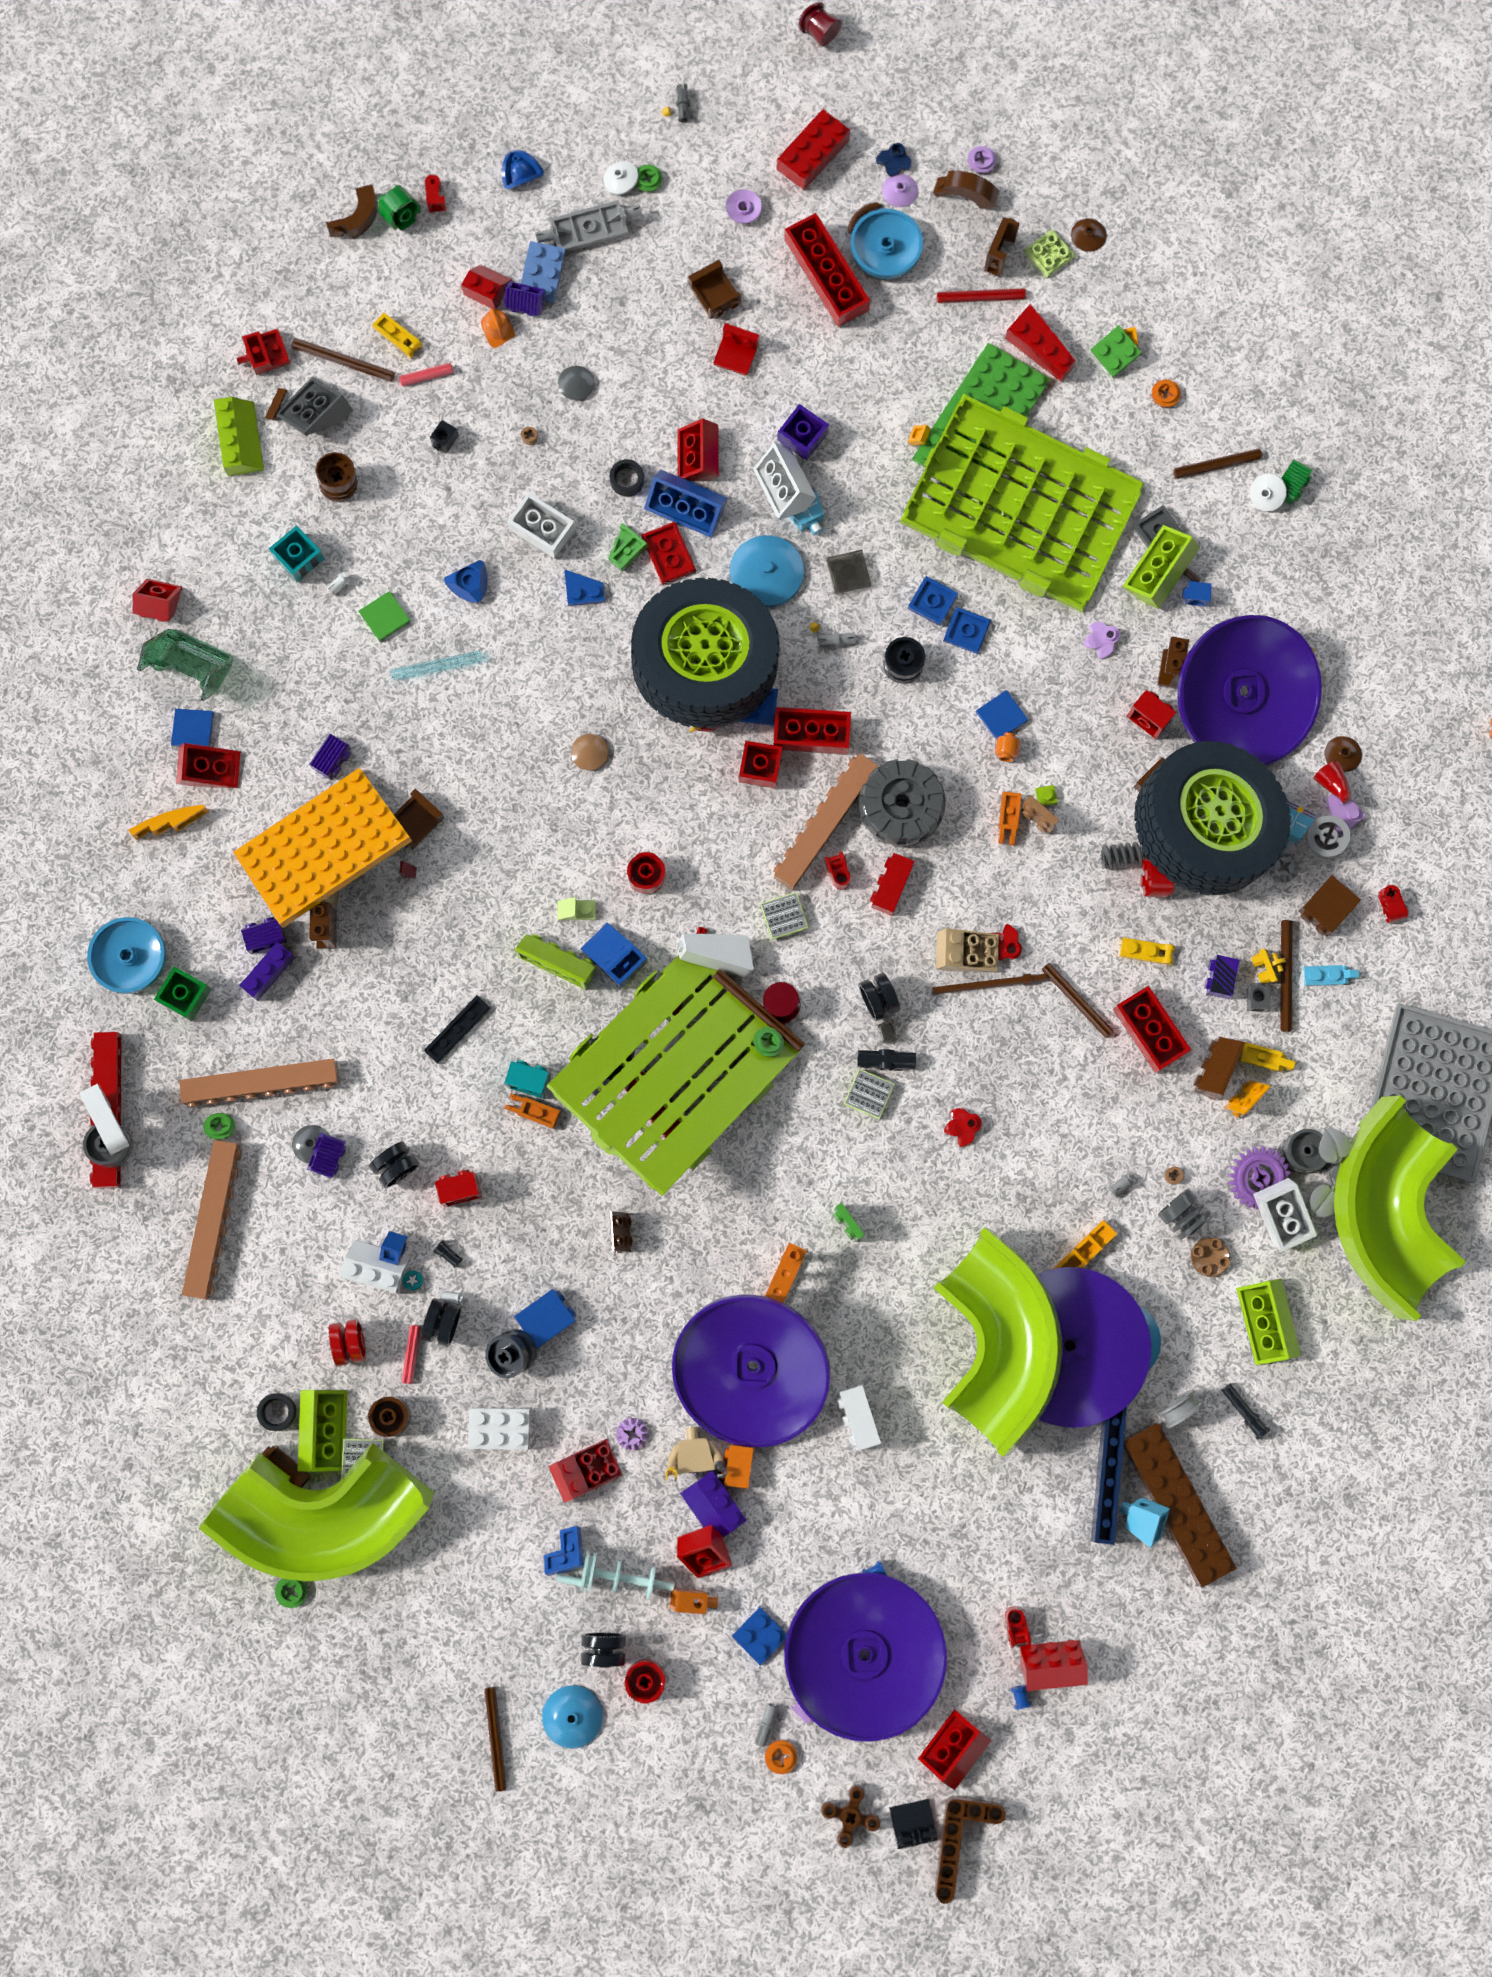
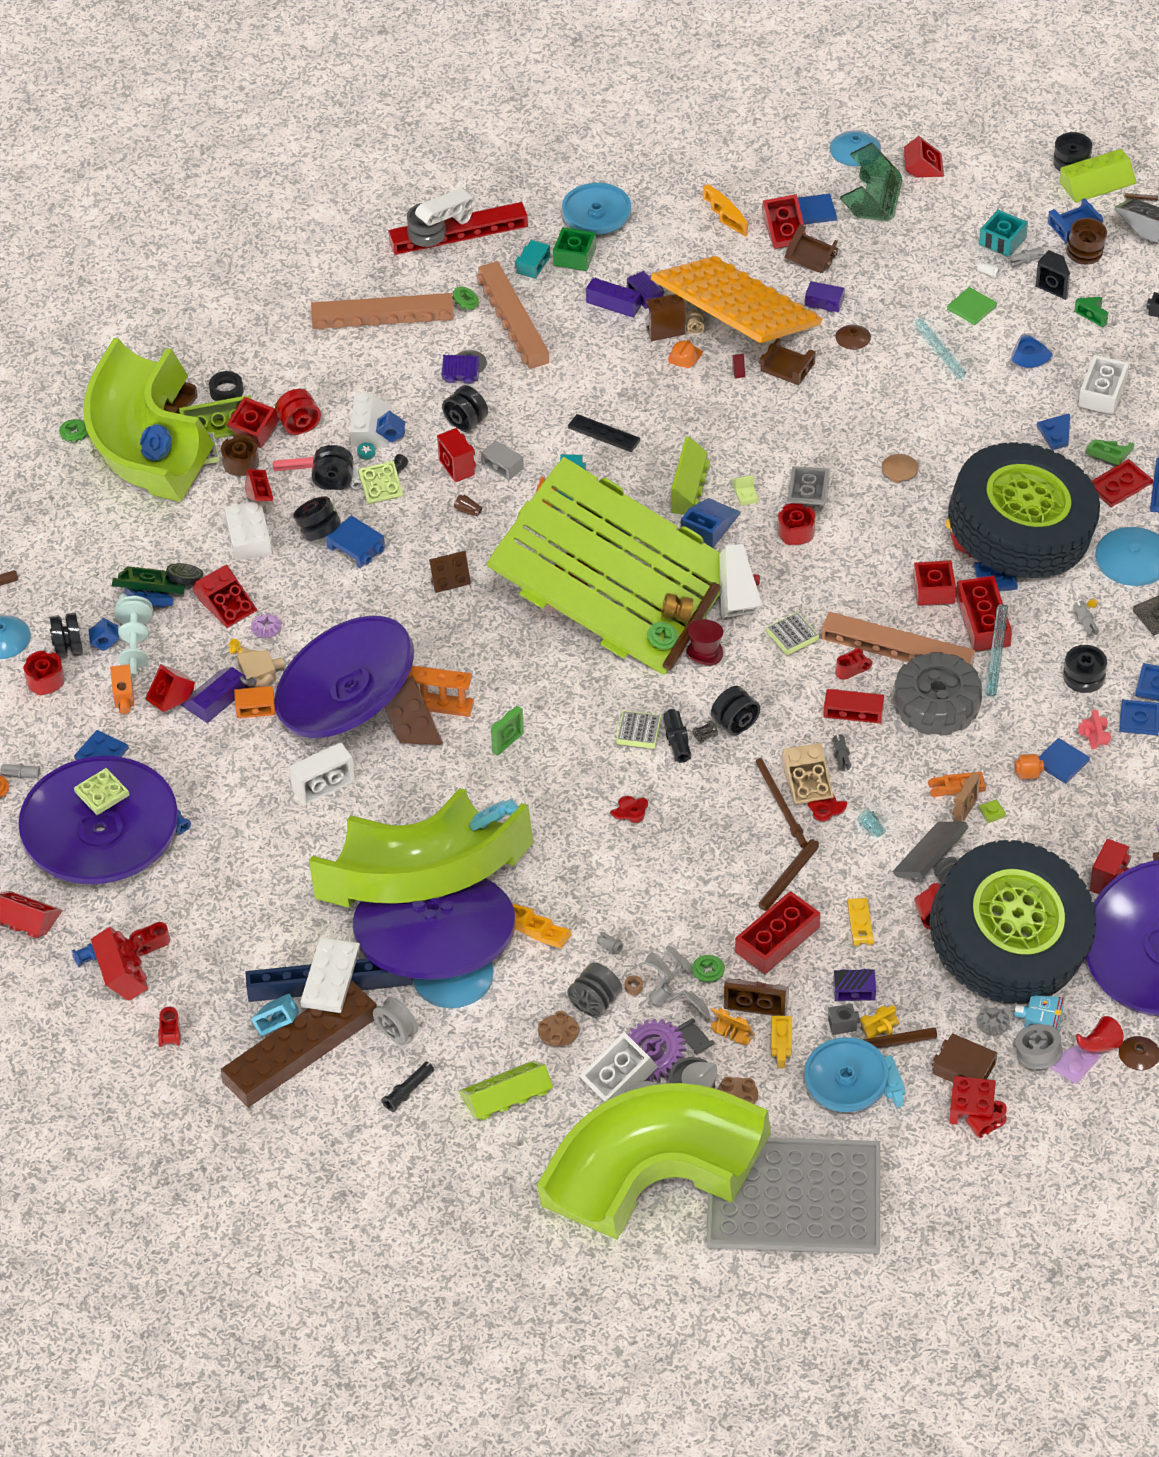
camera: 80 degrees right, 30 degrees down
(112, 673) = (848, 142): none -> dark azure dish
(181, 1041) = (533, 259): none -> teal brick
(199, 449) = (1071, 148): none -> black wheel
(260, 751) = (810, 251): none -> reddish brown panel
(296, 478) = (1062, 222): none -> blue panel
(331, 542) = (1025, 256): none -> light grey pin
(346, 1394) = (253, 420): none -> red slope
(362, 1507) = (156, 442): none -> blue tile
(366, 919) = (684, 354): none -> orange piece
(376, 522) = (1053, 274): none -> black slope
(393, 753) = (853, 337): none -> reddish brown dish
(428, 506) = (1092, 310): none -> green slope
(451, 1406) = (257, 485): none -> red slope
(469, 1275) = (380, 482): none -> yellowish green tile
(471, 1141) = (502, 460): none -> light grey brick
(524, 1192) = (467, 505): none -> reddish brown cone
(543, 1507) = (183, 573): none -> black tile
(544, 1549) = (146, 579): none -> dark green wing
(608, 848) = (808, 485): none -> light grey slope
(608, 1608) = (103, 634): none -> blue brick
(743, 1017) = (677, 607): none -> pearl gold wheel
(815, 1306) = (411, 716): none -> reddish brown wing
(836, 1648) = (101, 791): none -> yellowish green tile
(868, 732) = (996, 652): none -> clear light blue axle
(944, 911) = (841, 752): none -> dark grey pin
(973, 1263) = (494, 812): none -> medium azure hinge
(975, 675) = (1093, 730): none -> coral hips
(1037, 908) = (871, 823): none -> clear light blue cone
(1086, 864) = (930, 849): none -> dark grey tile
(1121, 1460) = (330, 975): none -> white plate
(1133, 1627) = (169, 1029): none -> red piece
(1179, 1102) = (705, 962): none -> bright green gear
(1197, 1151) = (663, 990): none -> light grey plant
(1243, 1135) = (694, 1036): none -> dark grey piece
(1316, 1112) = (740, 1087): none -> medium nougat dish
(1324, 1012) = (846, 1074): none -> dark azure dish
(1375, 912) = (971, 1097): none -> red bracket

